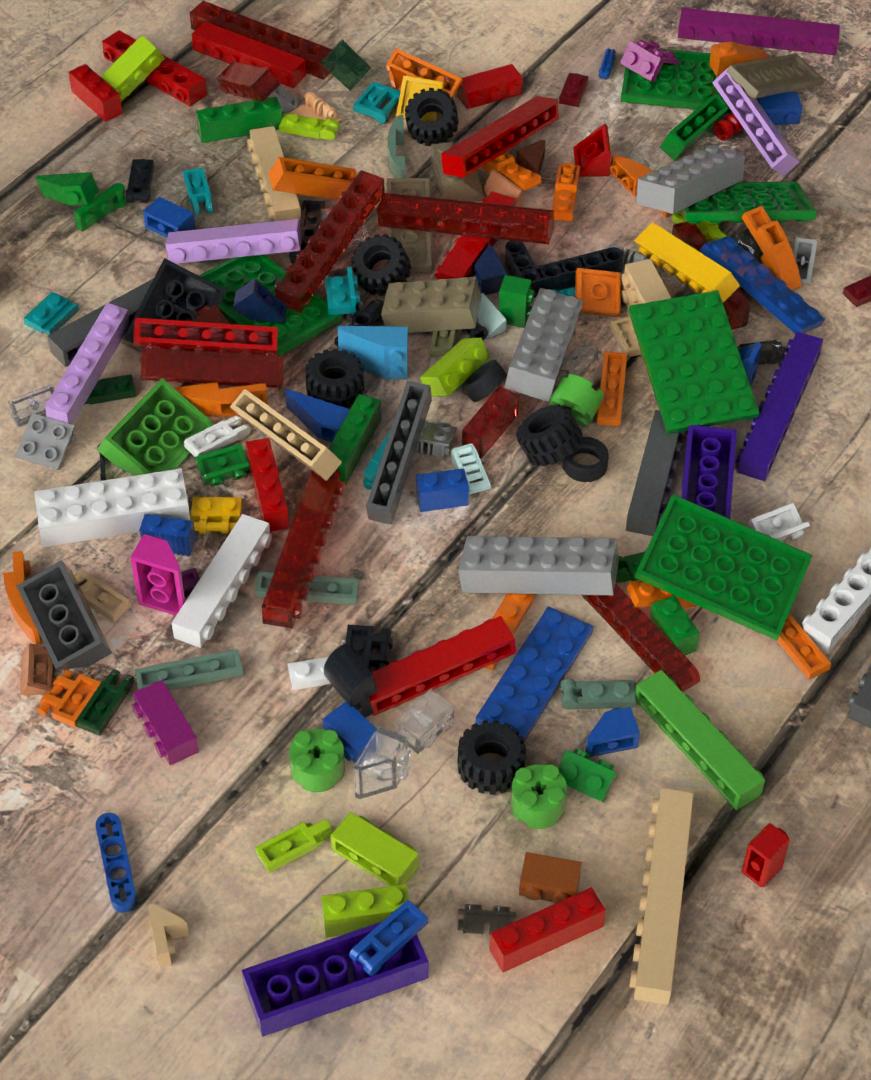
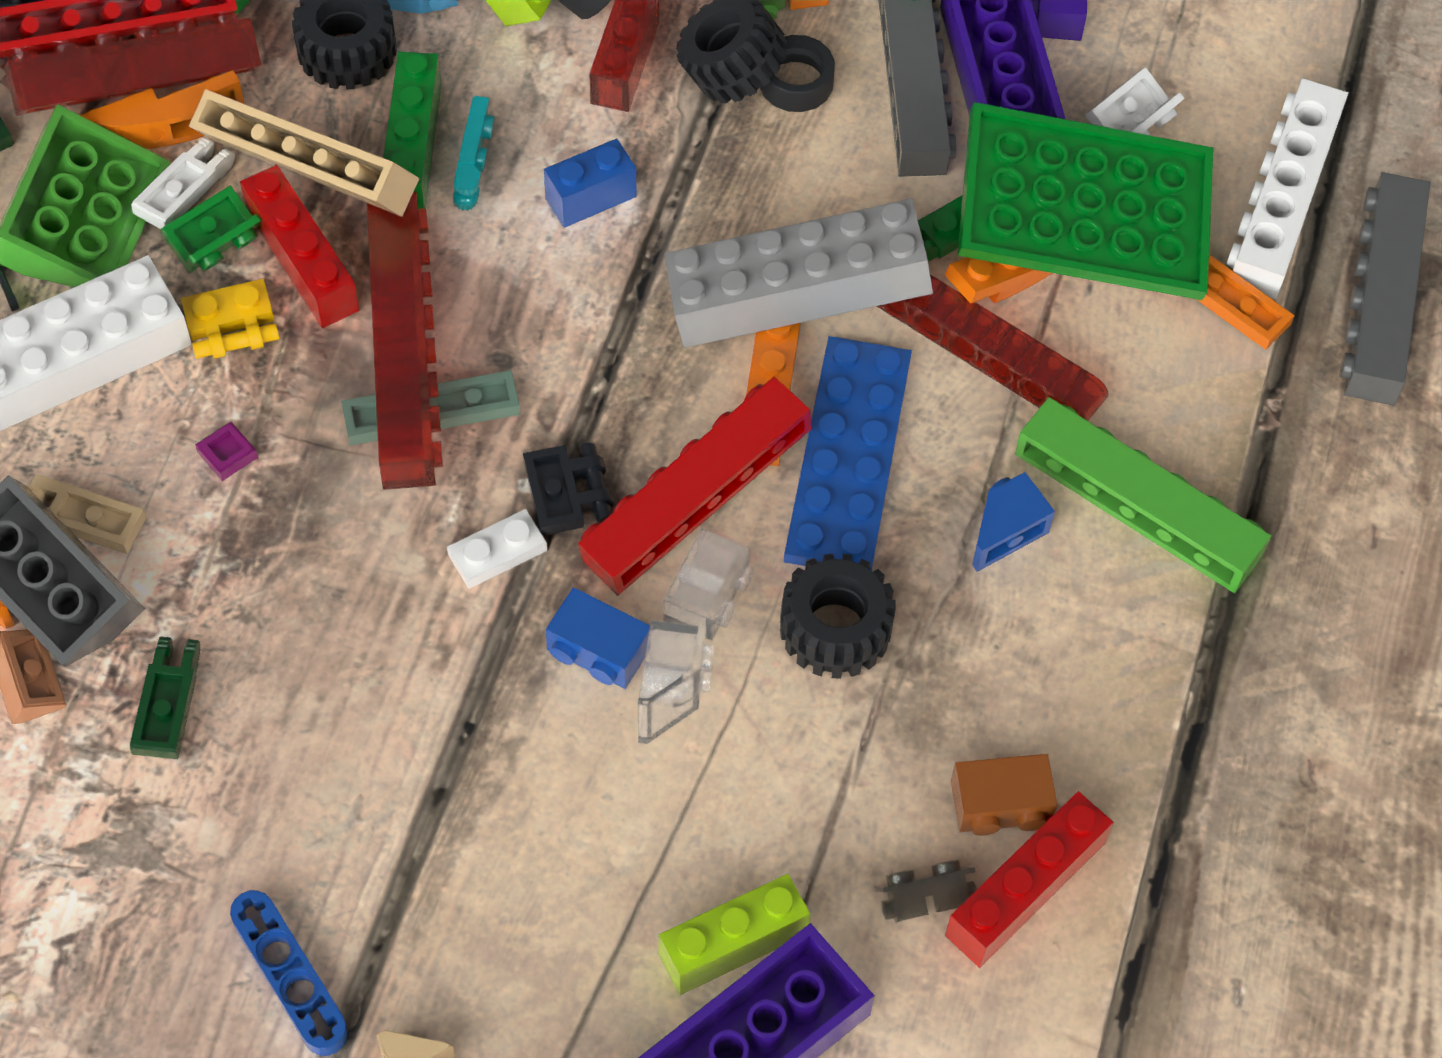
camera: 20 degrees left, 10 degrees up
(74, 700) = (113, 712): orange plate -> none
(157, 575) = (185, 457): dark pink slope -> none
(165, 723) = (282, 706): magenta brick -> none
(176, 531) = (163, 376): blue brick -> none
(192, 670) = (288, 607): sand green plate -> none
(221, 581) = (285, 434): white brick -> none
(292, 844) = (570, 856): lime hinge -> none
(317, 415) = (344, 106): blue slope -> none
(317, 759) = (557, 676): bright green brick -> none
(351, 679) = (570, 548): black brick -> none
(374, 850) = (709, 827): lime brick -> none
(389, 937) = (801, 975): blue plate -> none
(399, 452) = (504, 137): dark grey brick -> none
(439, 435) = (528, 90): light grey hinge -> none
(466, 455) = (610, 112): light aqua slope -> none
(538, 795) = (934, 659): bright green brick -> none
(587, 775) = (991, 602): green bracket -> none
(597, 694) = (959, 462): sand green plate -> none
(663, 897) = (1183, 770): tan brick -> none
(675, 624) = (1040, 313): green brick -> none
(765, 855) = (1318, 657): red brick -> none

